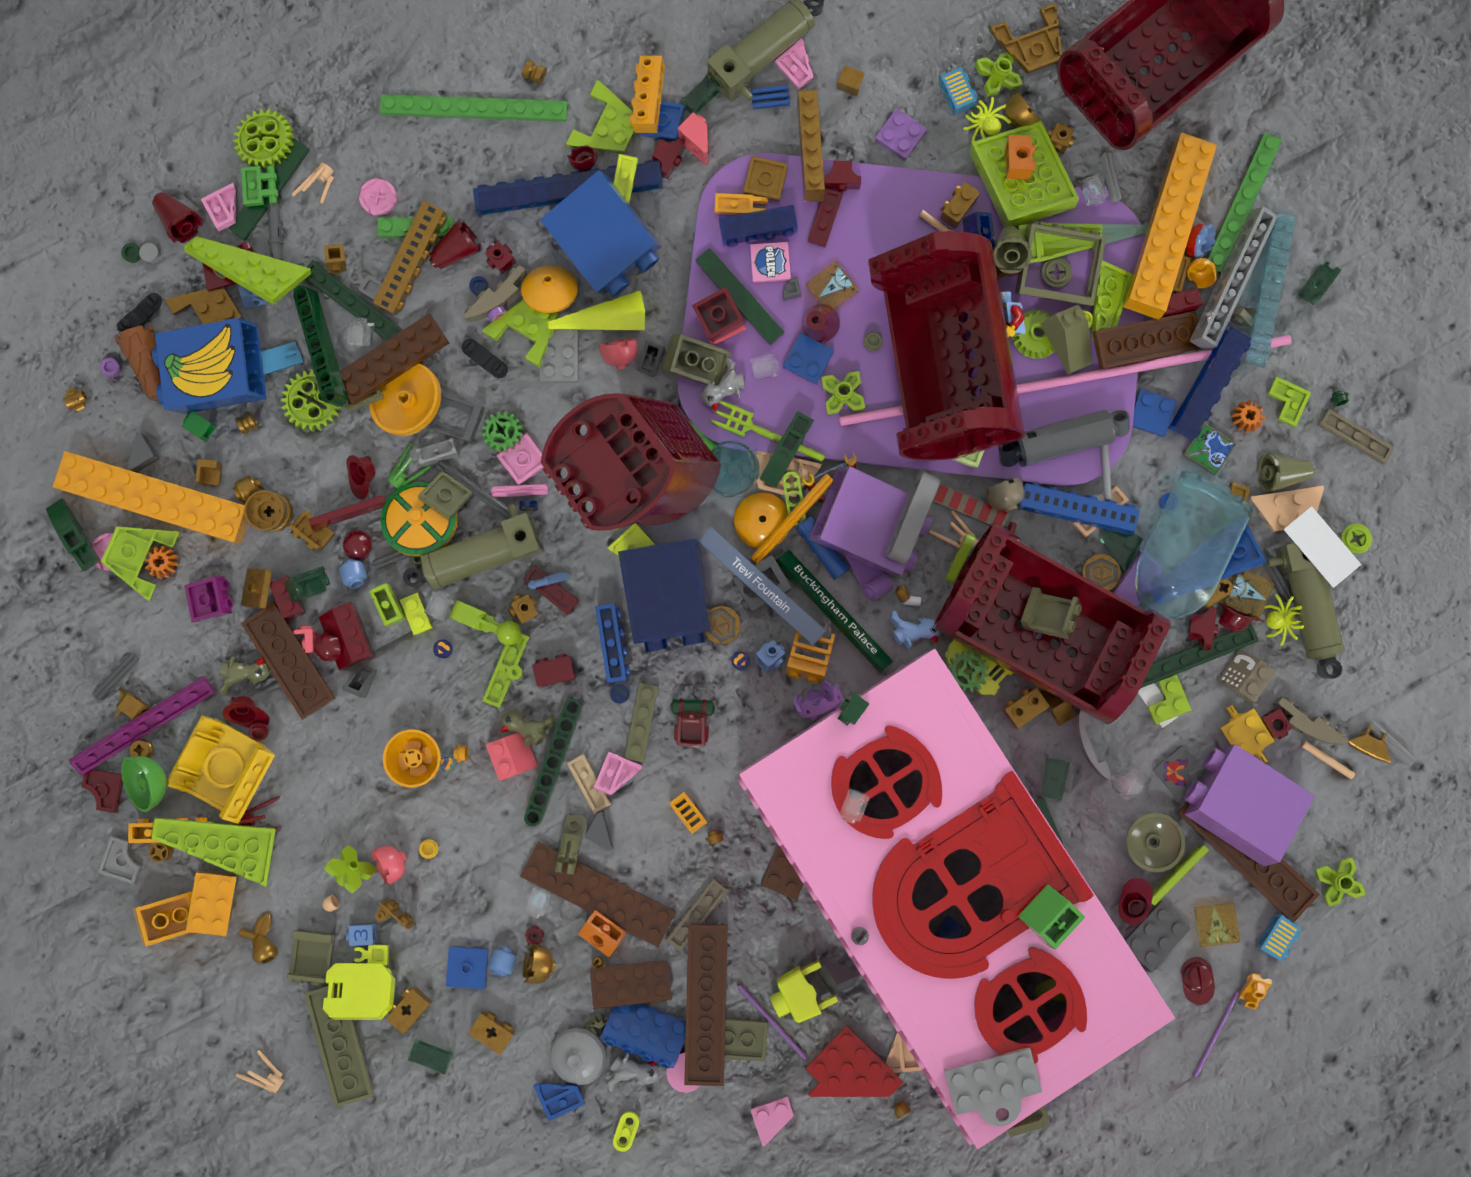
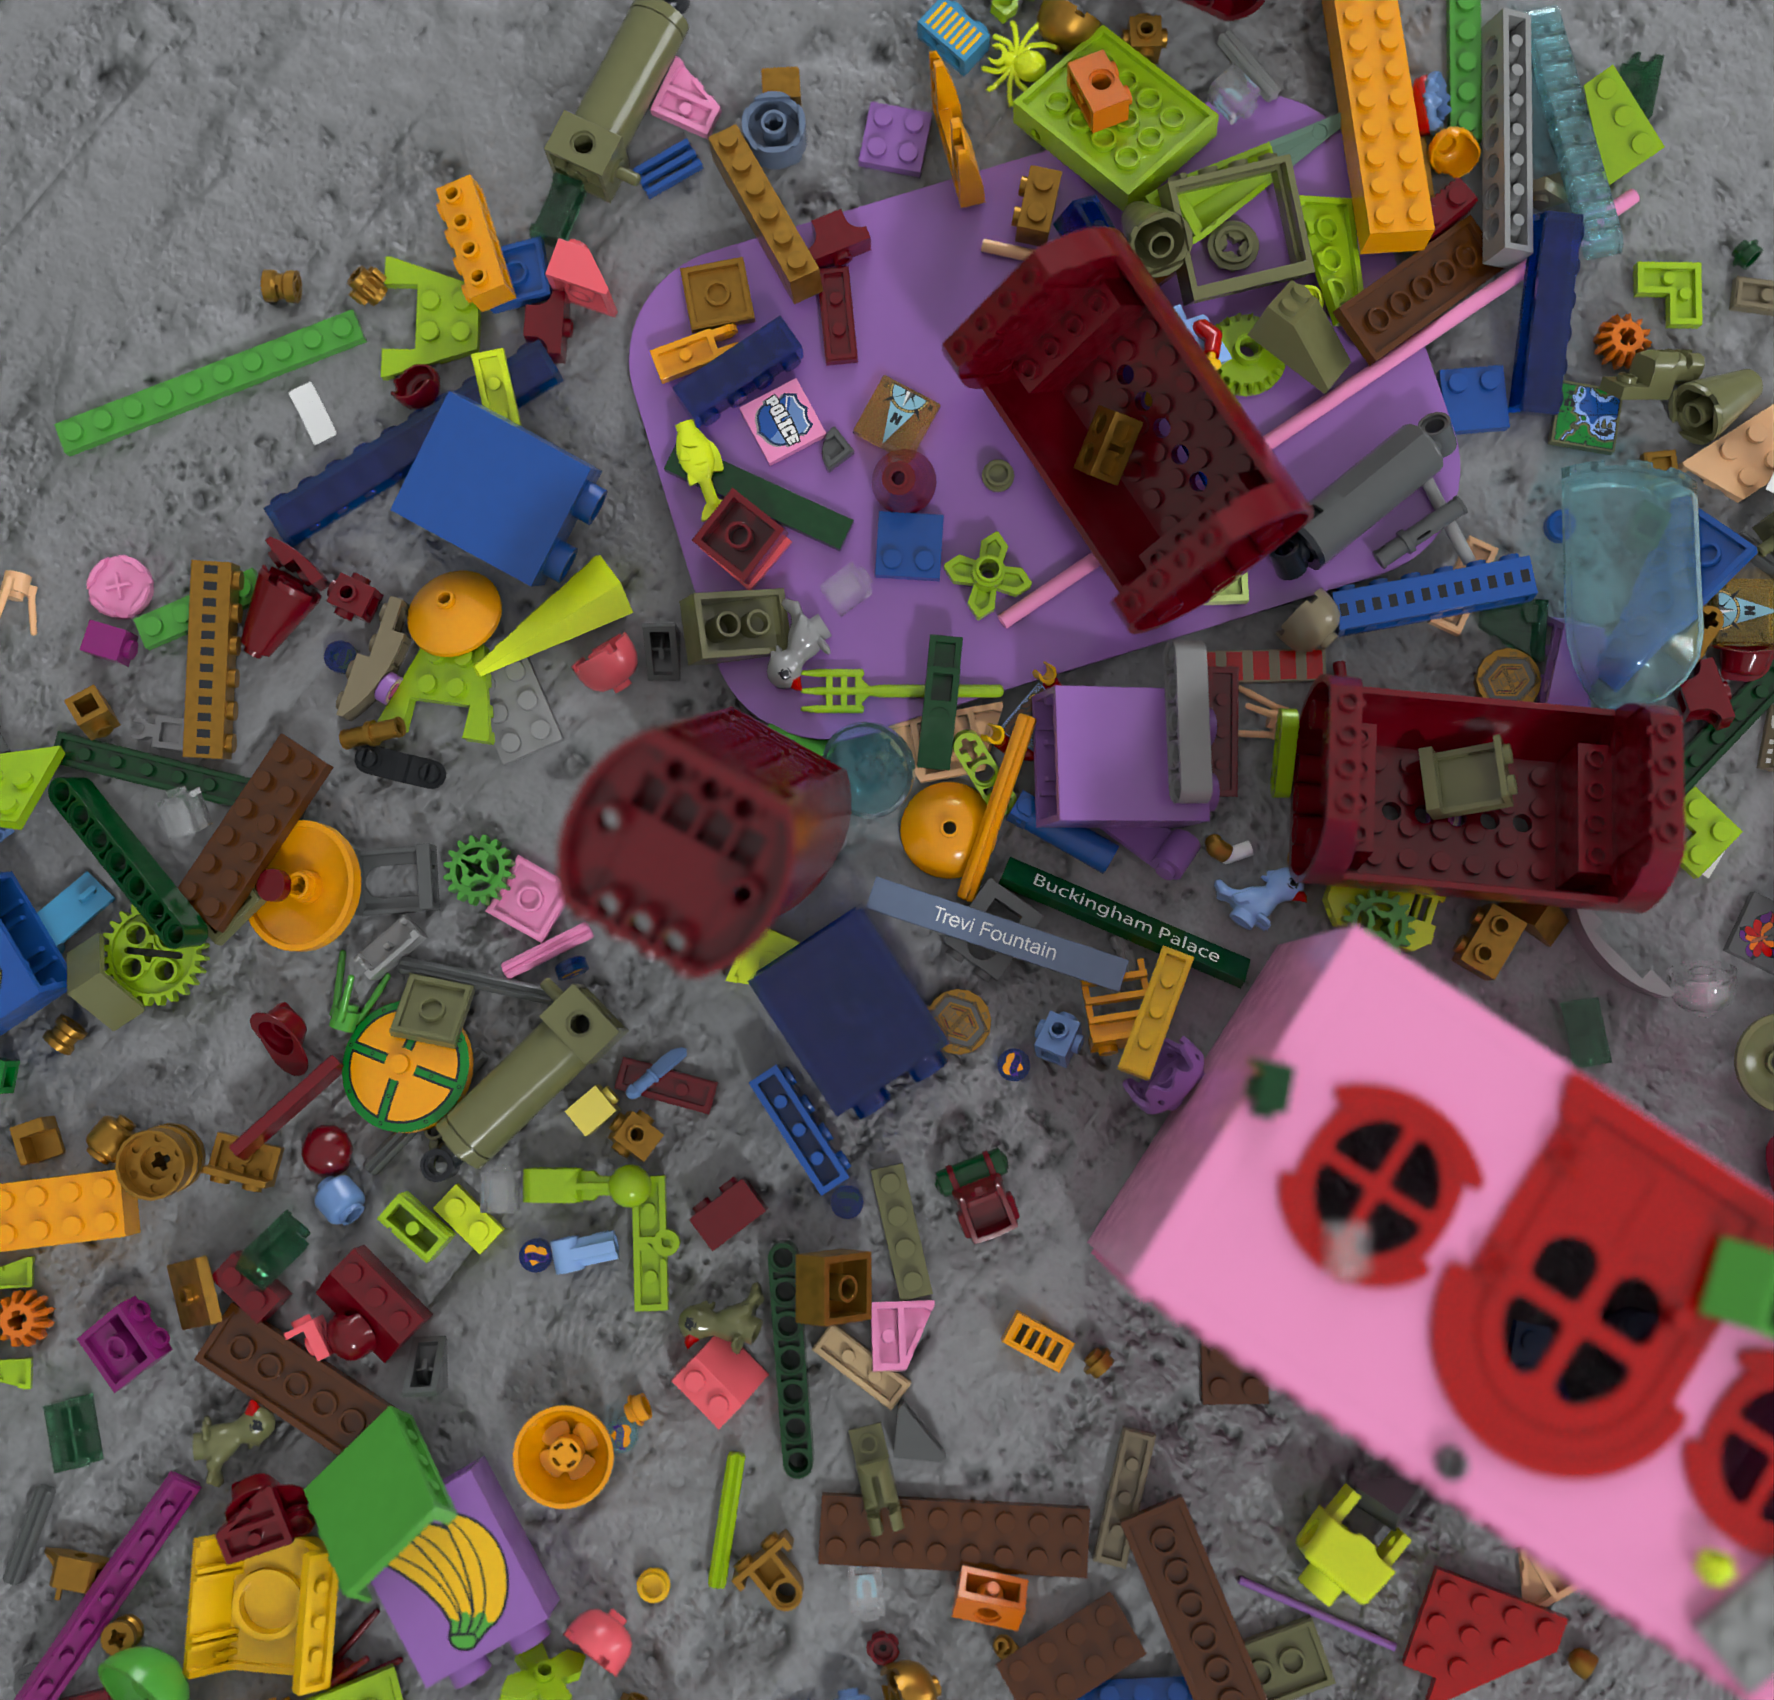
camera: 25 degrees left, 0 degrees up
(161, 633) = (73, 1432): none -> clear green hinge
(236, 723) = (255, 1527): none -> dark red wing
(275, 405) = (96, 989): none -> olive panel
(305, 735) = (377, 1500): none -> bright green panel
(329, 795) = (467, 1584): none -> medium lavender brick
(360, 225) = (109, 643): none -> magenta brick
(391, 392) = (273, 885): none -> dark red tile
(465, 657) = (576, 1252): none -> light blue piece
(475, 222) = (294, 561): none -> dark red slope
(478, 334) = (372, 733): none -> pearl gold pin
(481, 832) = (726, 1520): none -> lime axle
(493, 867) = (770, 1569): none -> pearl gold pin
(507, 585) = (593, 1109): none -> light yellow brick
(521, 147) = (312, 413): none -> white sticker
(580, 92) = (367, 285): none -> pearl gold gear
(592, 733) = (833, 1287): none -> pearl gold brick
(716, 264) = (699, 460): none -> neon yellow animal
(827, 665) = (1155, 1013): none -> yellow tile
(836, 112) = (775, 112): none -> sand blue brick
(927, 544) = (1224, 700): none -> dark red tile
(934, 137) = (953, 134): none -> light orange wedge
(936, 351) = (1108, 445): none -> pearl gold brick
(967, 1045) = (1715, 1567): none -> neon yellow plate
(1086, 471) = (1407, 540): none -> dark grey pin
(1256, 442) = (1654, 374): none -> olive plate
(1297, 297) = (1619, 124): none -> lime wedge

